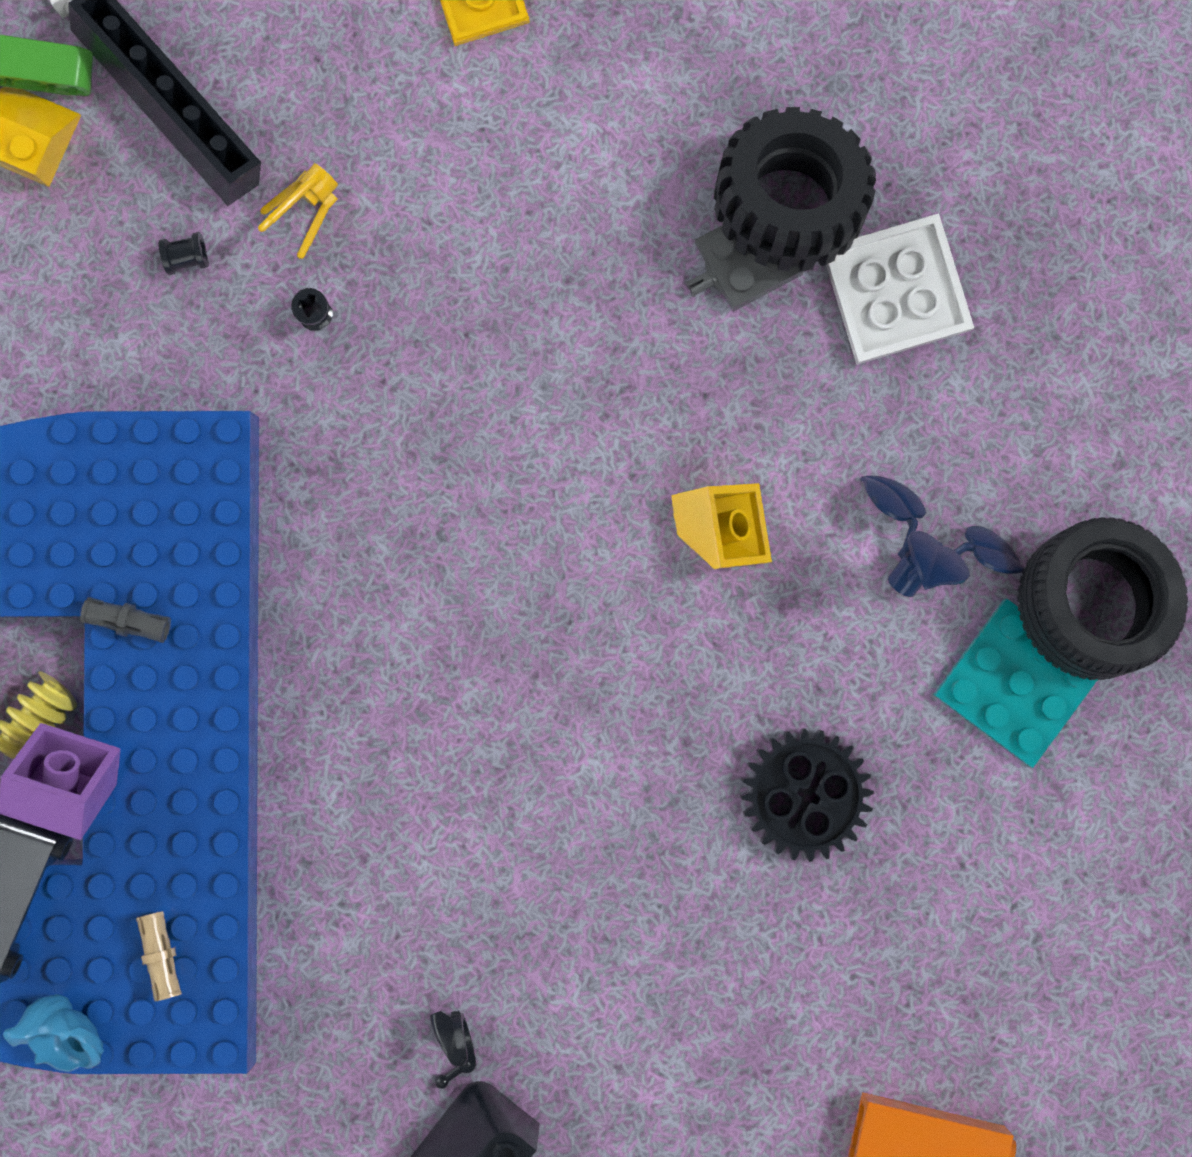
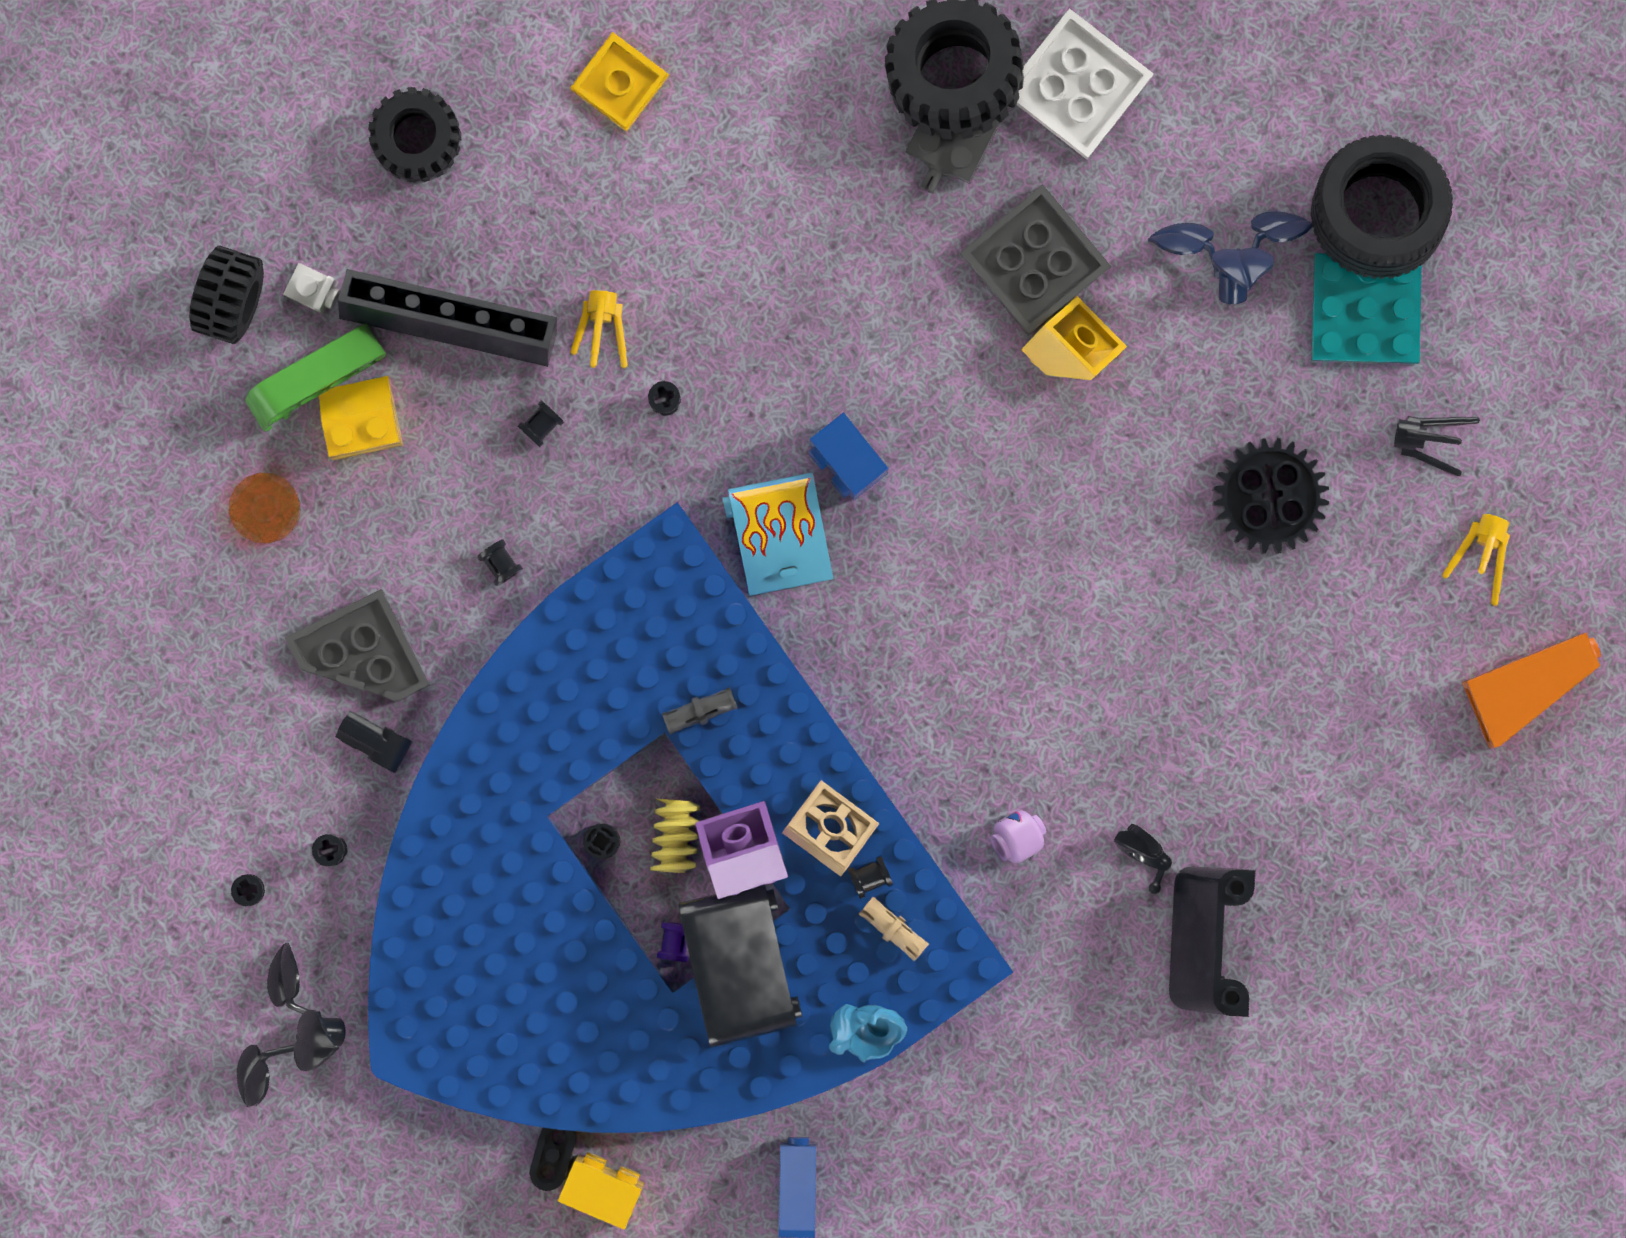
camera: 35 degrees left, 0 degrees up
(55, 353) = (499, 562): none -> black bush
(171, 891) = (870, 877): none -> black bush
(201, 836) = (862, 823): none -> tan piece
(331, 502) = (778, 529): none -> medium azure door
(347, 945) = (1018, 836): none -> lavender head
(437, 480) = (847, 456): none -> blue brick
(743, 422) = (1035, 260): none -> dark grey plate
(978, 831) = (1412, 436): none -> black plant
(988, 975) = (1492, 535): none -> yellow plant

